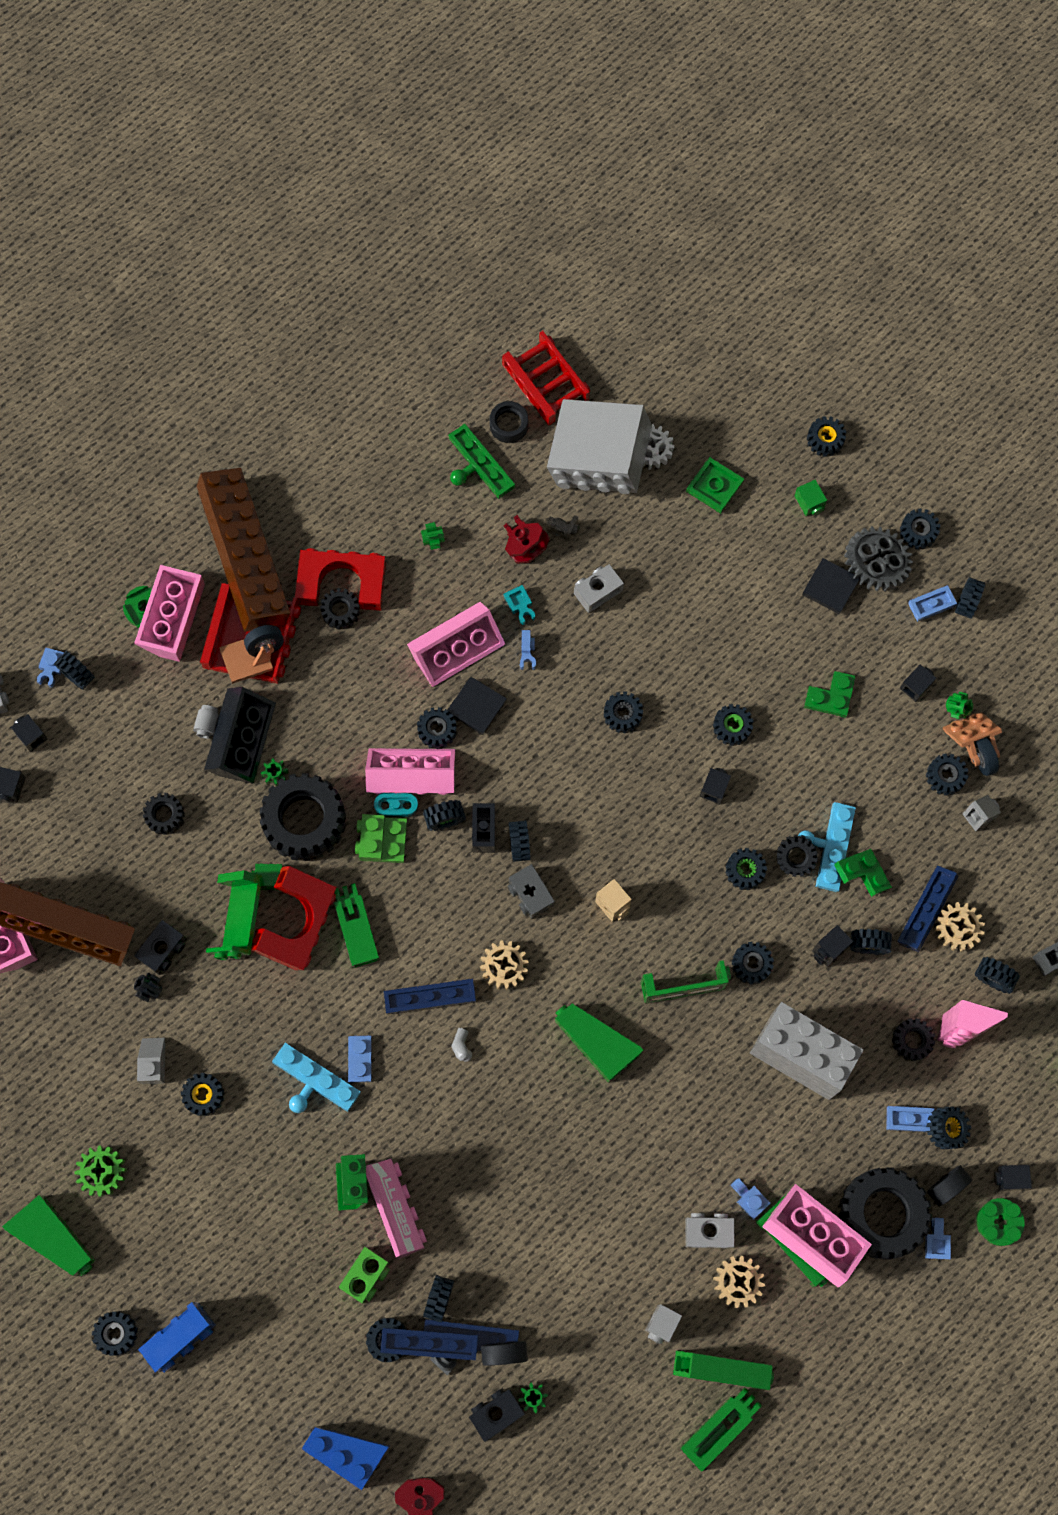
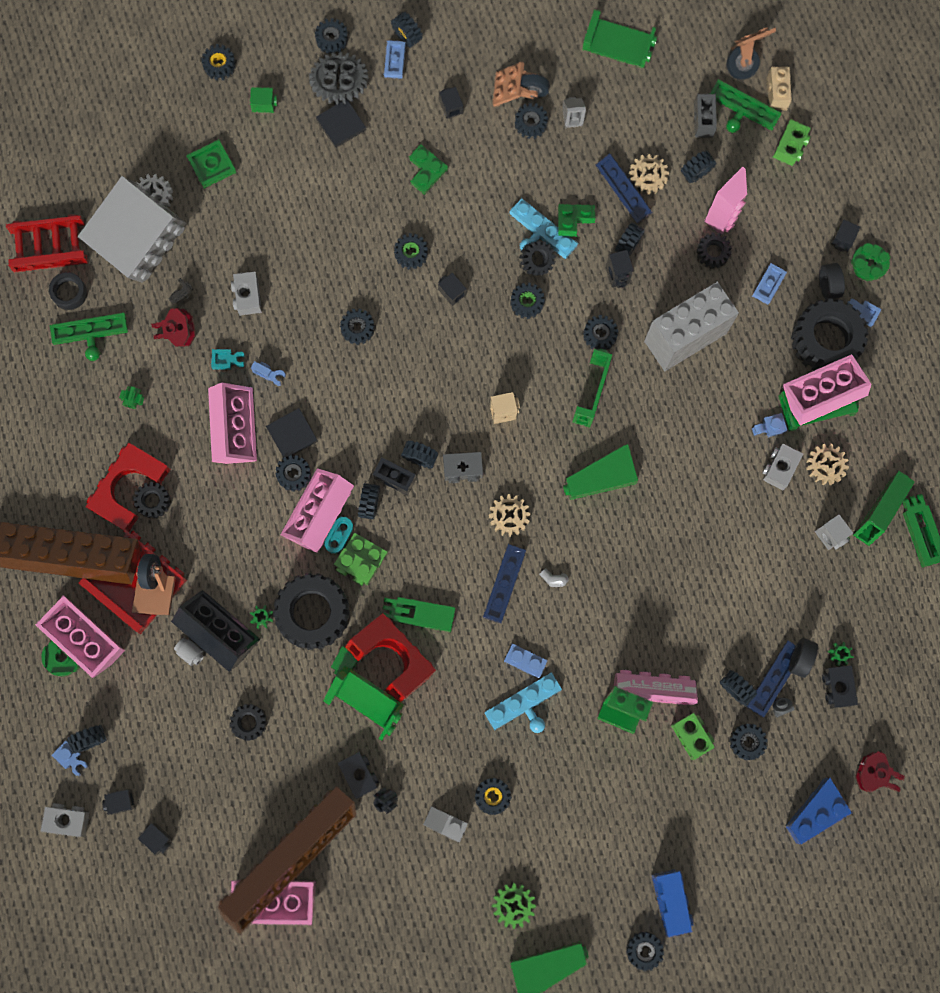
camera: 65 degrees left, 5 degrees up
(429, 1344) = (769, 711): dark blue plate -> none
(955, 1118) = (790, 260): black bush -> none
(959, 705) = (484, 83): green gear -> none

